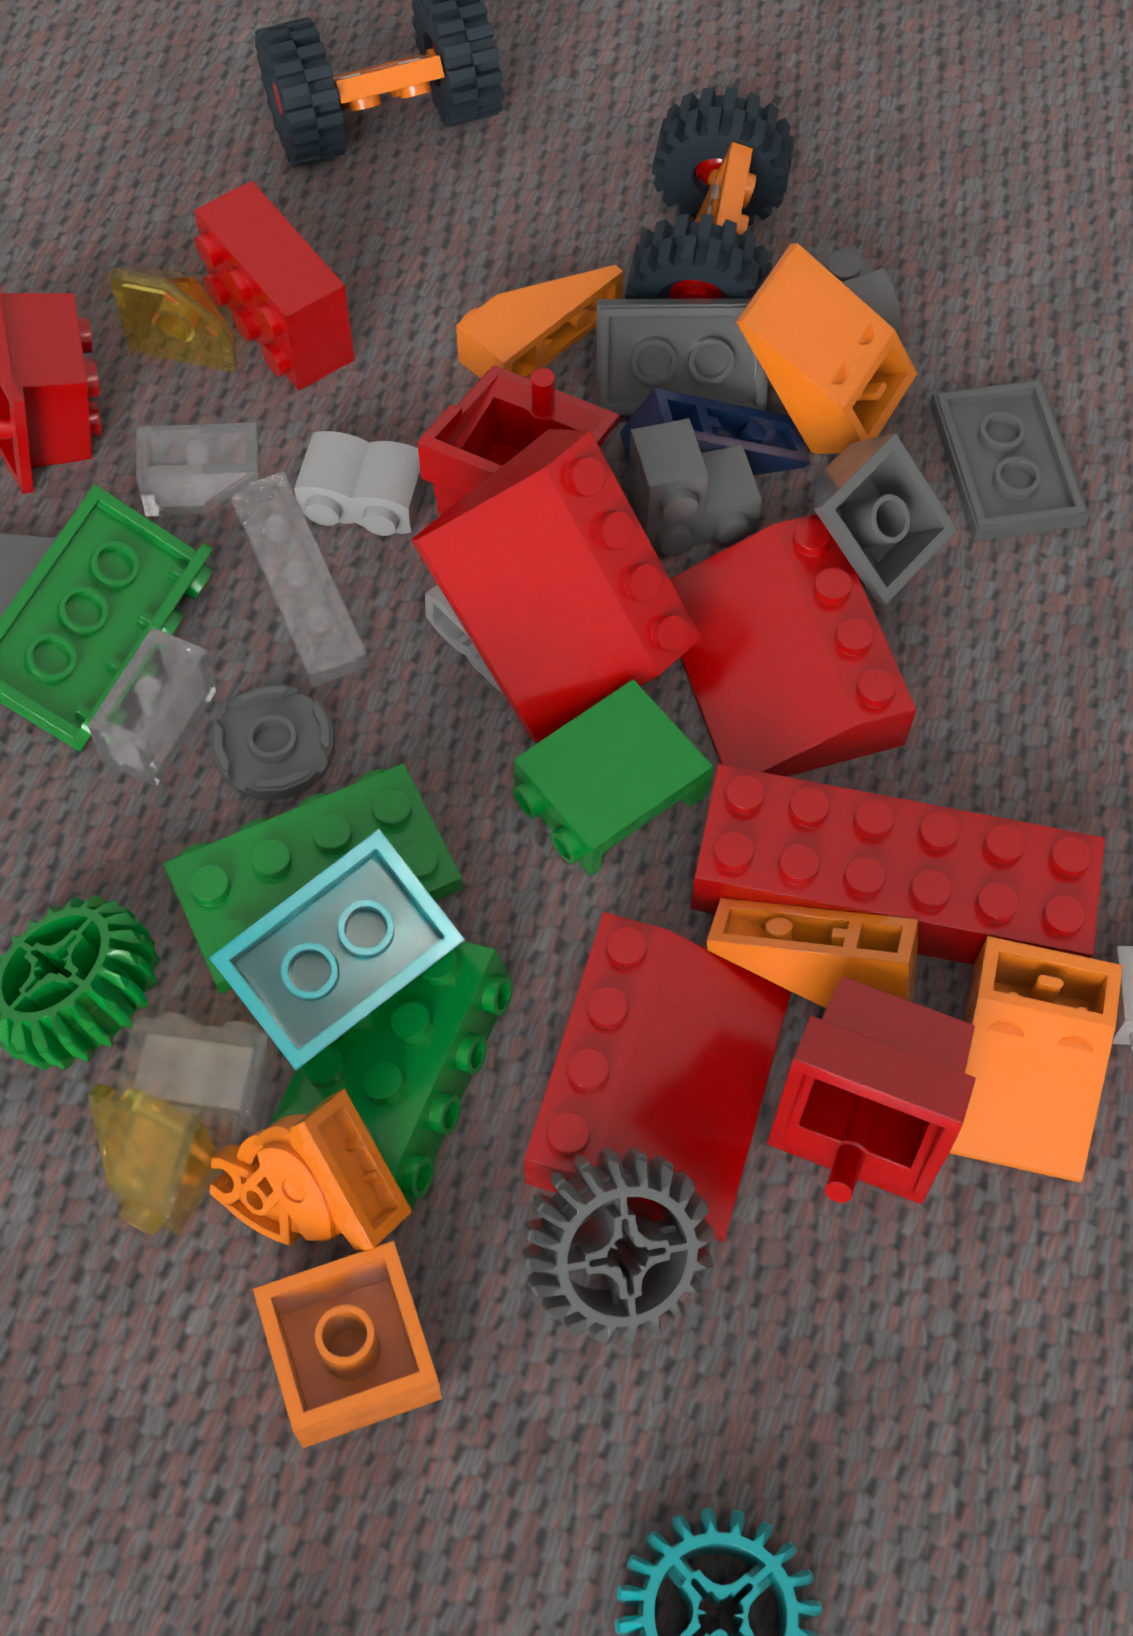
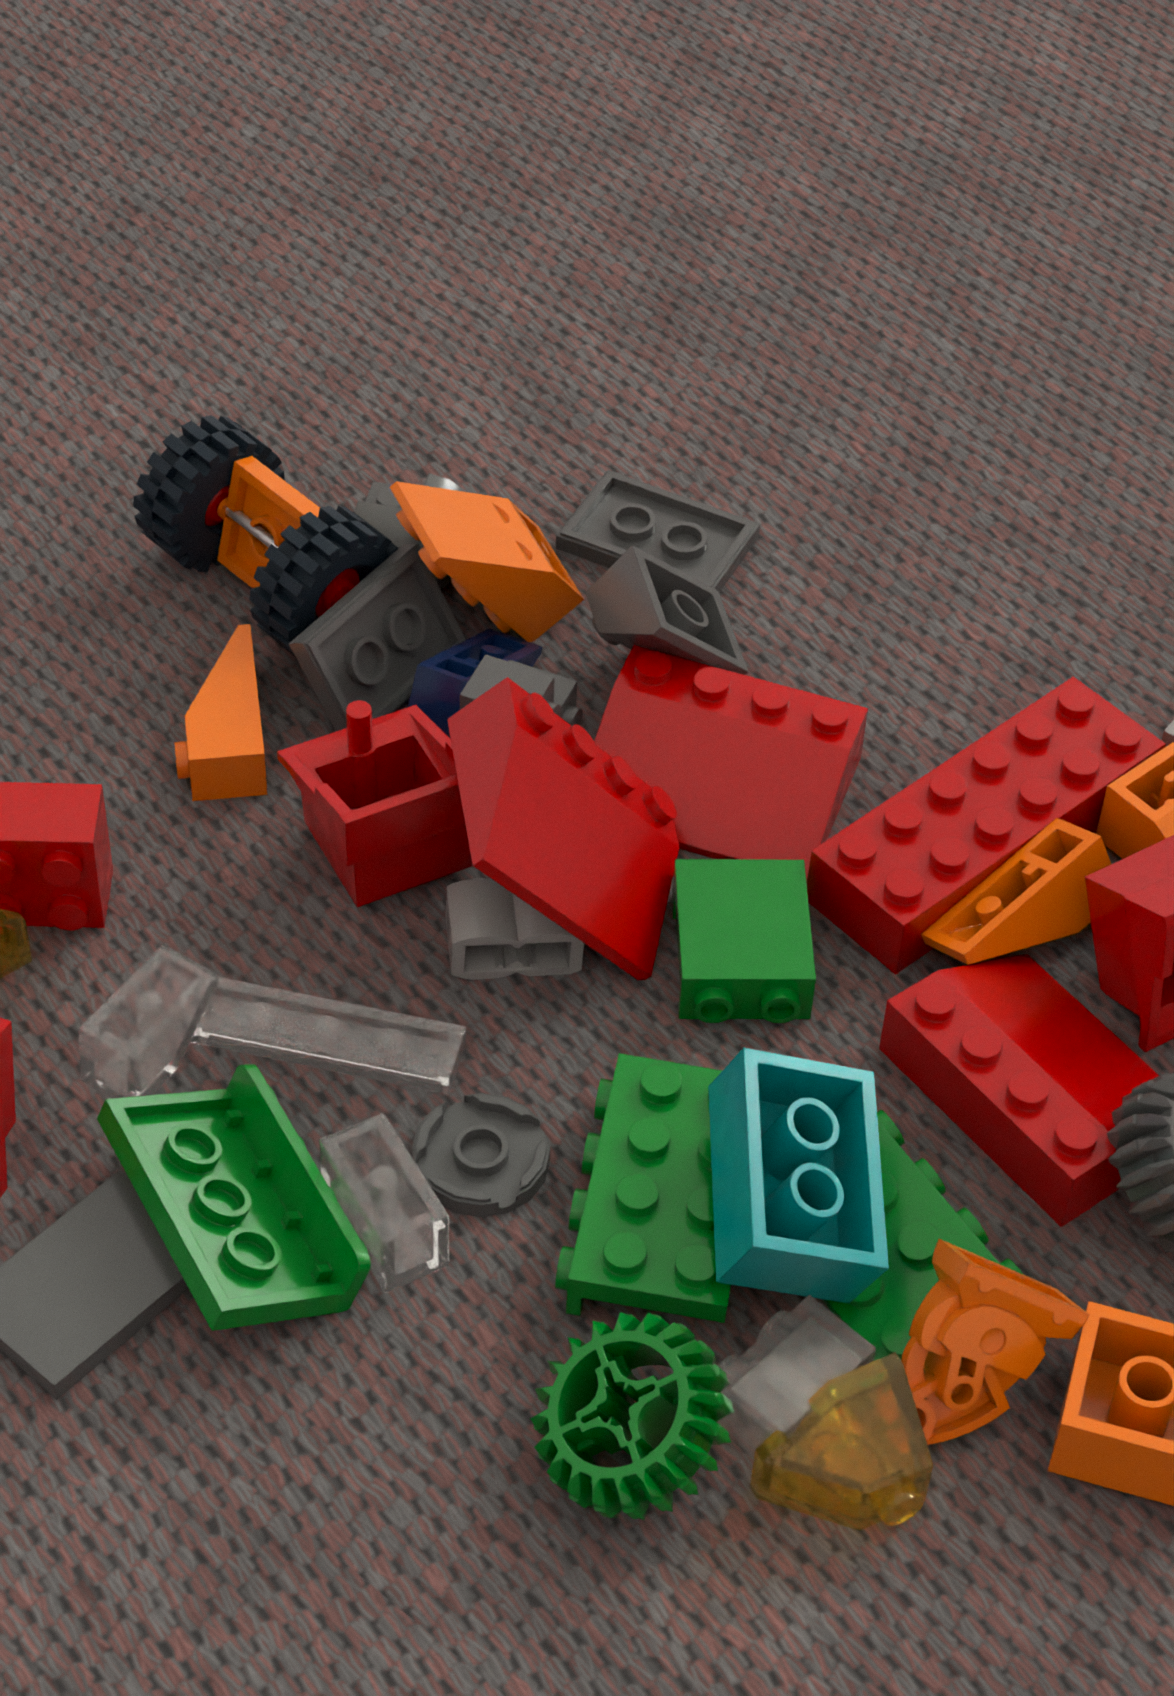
camera: 55 degrees left, 15 degrees down
(360, 483) = (274, 928): light grey brick -> none

